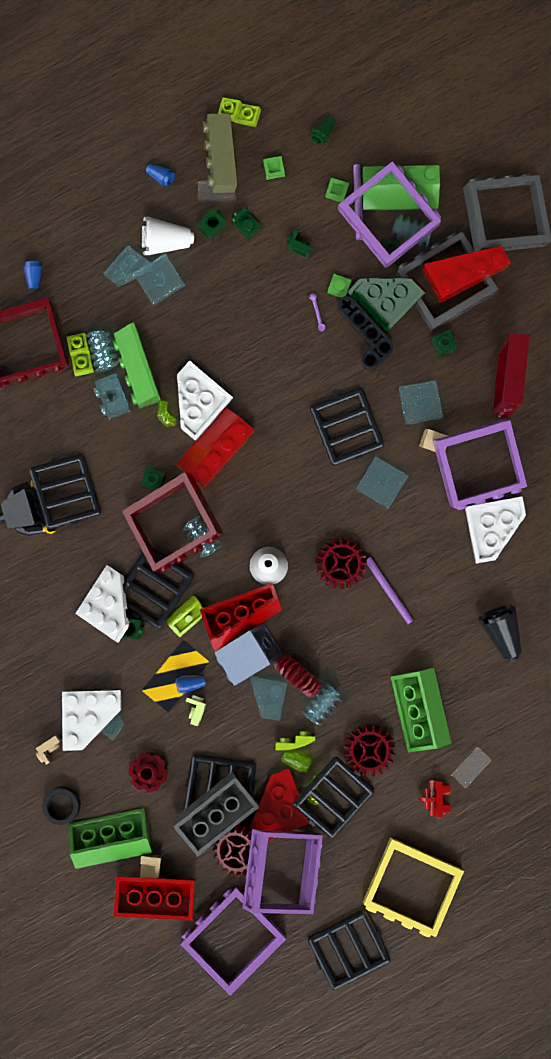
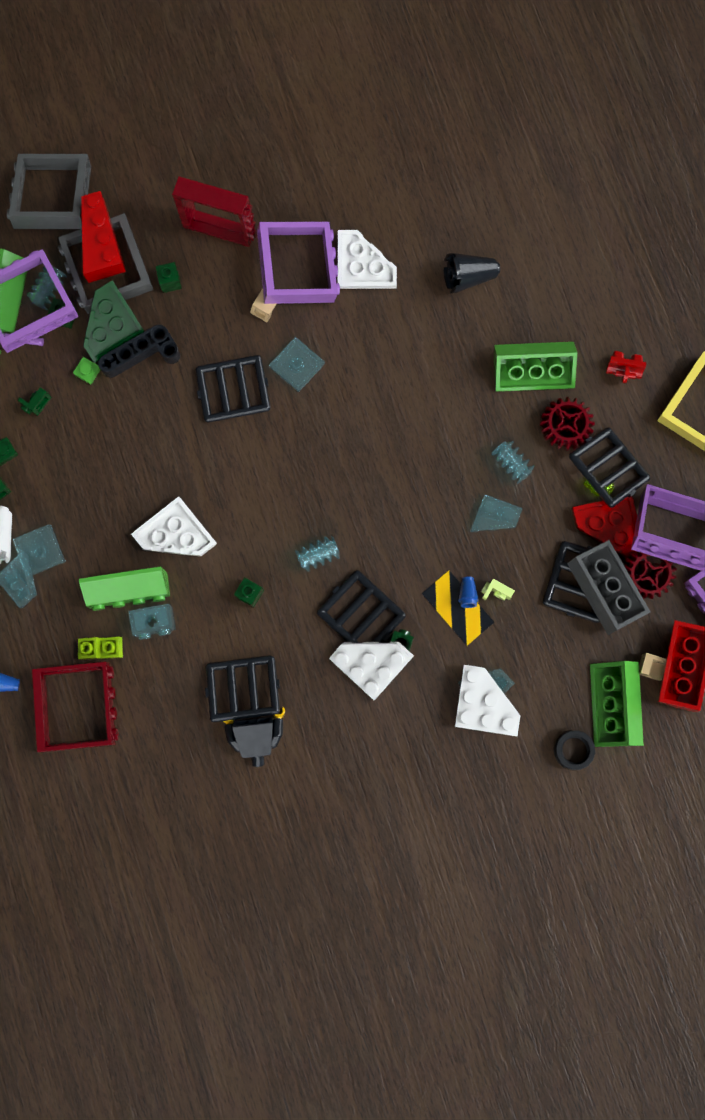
camera: 80 degrees left, 5 degrees down
(49, 745) = (509, 750): tan bracket -> none
(101, 351) = (101, 623): clear light blue piece -> none
(130, 513) = (266, 587): dark red window -> none
(140, 779) = (564, 650): dark red plant -> none
(164, 416) = (184, 571): clear neon green arm -> none
(185, 616) = (397, 585): lime slope -> none
(216, 447) = (227, 523): red slope -> none
(239, 614) = (406, 528): red wedge -> none
(248, 654) = (449, 527): slope -> none
(272, 574) = (360, 492): white cone -> none
(297, 761) = (567, 496): clear neon green cone -> none
(298, 675) = (479, 478): dark red gear -> none
(300, 740) = (546, 491): lime slope -> none
(321, 327) = (125, 396): medium lavender hinge -> none
(355, 553) = (378, 413): dark red gear -> none
(388, 589) = (407, 377): medium lavender bar -> none
(420, 402) = (223, 312): clear light blue plate -> none
(471, 767) = (599, 329): clear tile -> none

